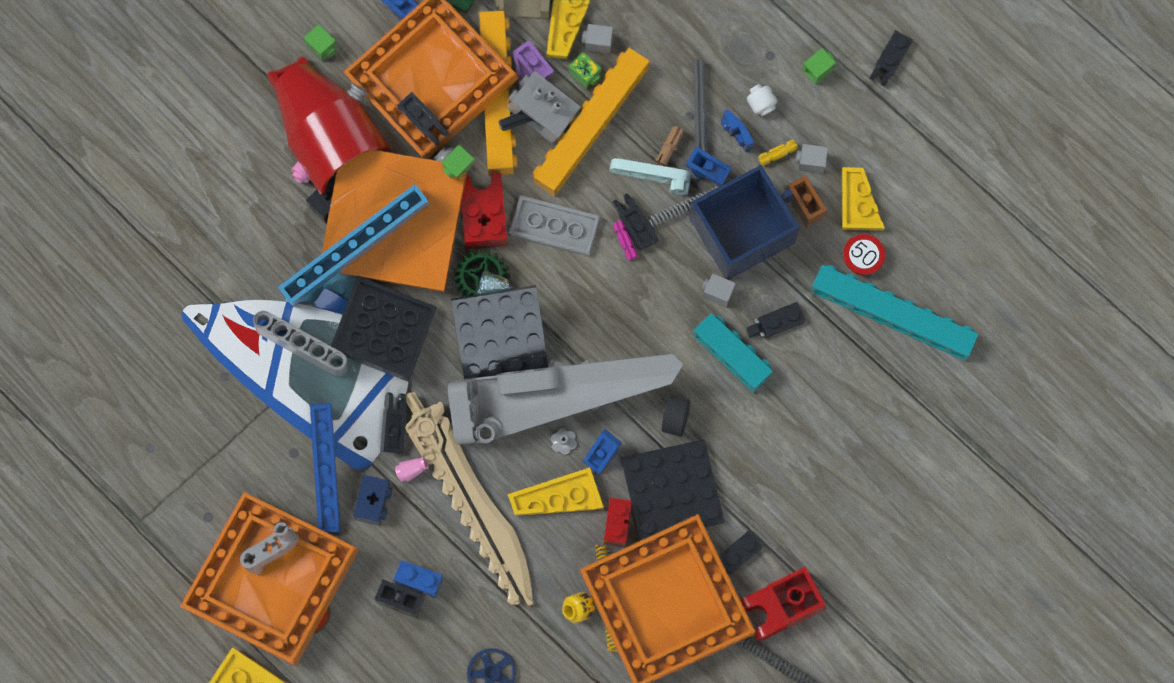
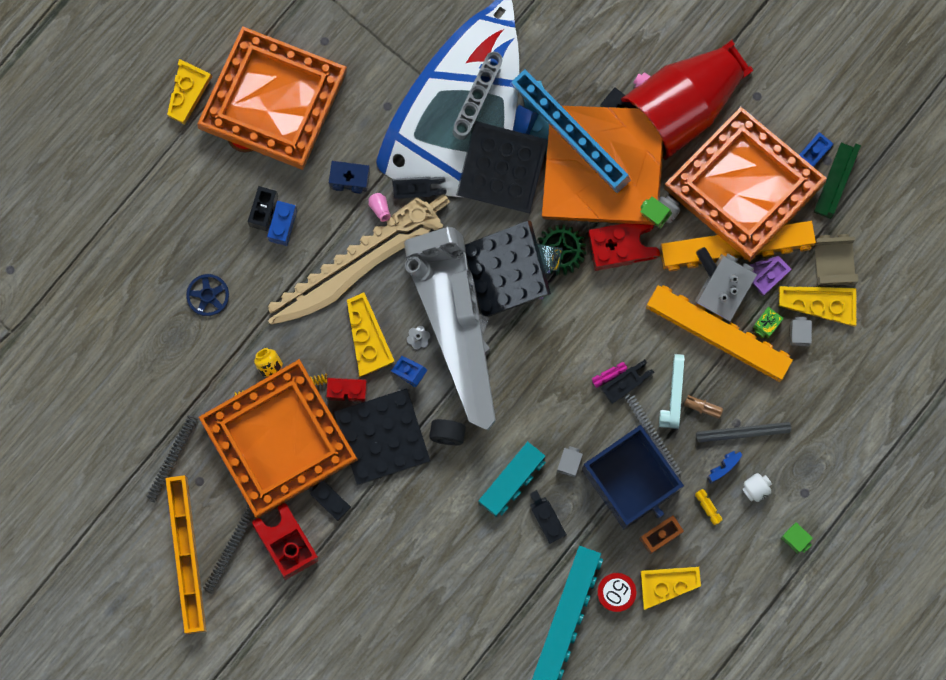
camera: 85 degrees right, 5 degrees up
(260, 553) = (305, 105): light grey beam -> none
(321, 43) = (767, 84): bright green brick -> none
(325, 467) = (371, 131): blue tile -> none
(357, 92) = (720, 119): light grey bush -> none
(421, 117) = (700, 178): black hinge -> none
(554, 225) = (617, 310): light grey tile -> none
(707, 166) = (684, 441): blue slope -> none
(812, 158) = (705, 538): light grey brick -> none
(892, 56) = (815, 606): black hinge -> none

